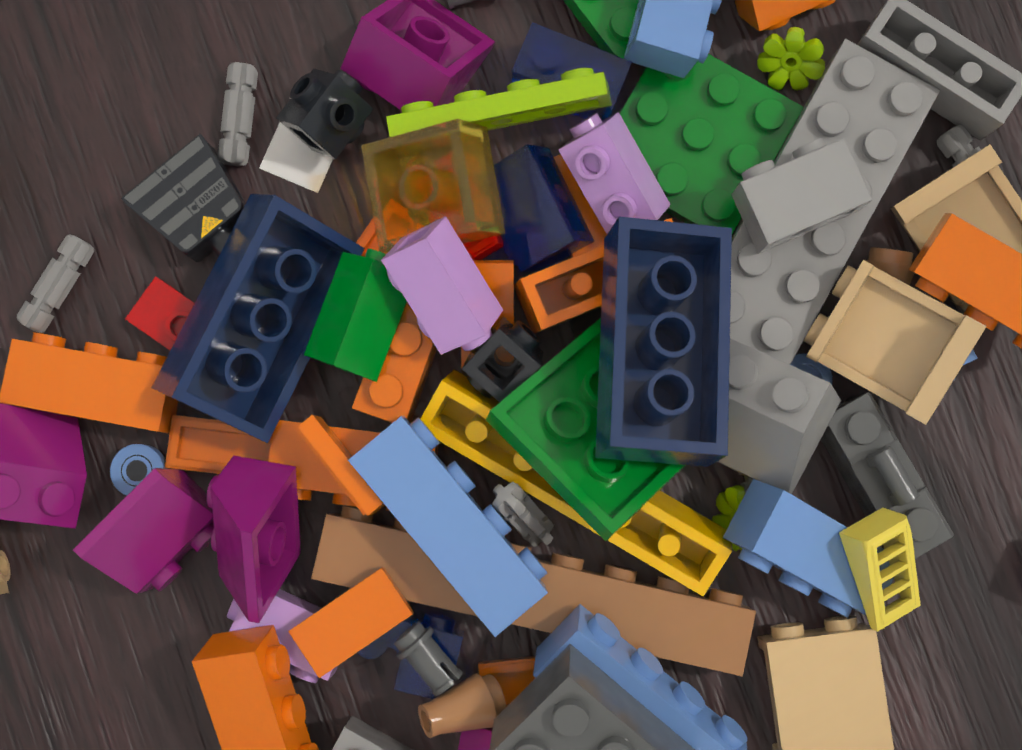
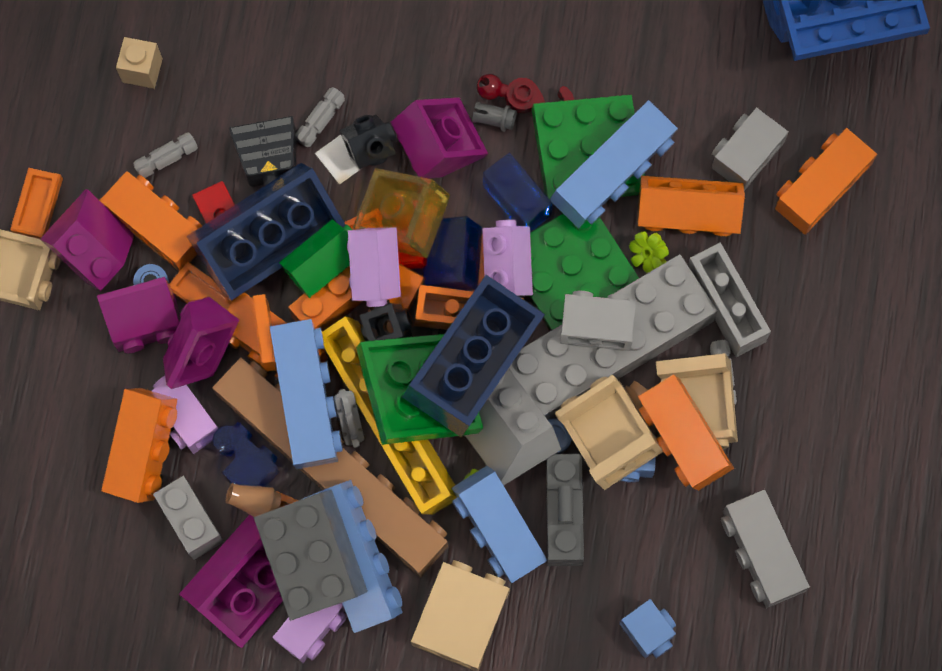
camera: 30 degrees right, 10 degrees down
(351, 622) = (220, 420): orange tile -> none
(427, 658) = (250, 461): dark grey pin -> none
(522, 103) = (475, 192): lime plate -> none
(861, 545) = (521, 527): light yellow slope -> none

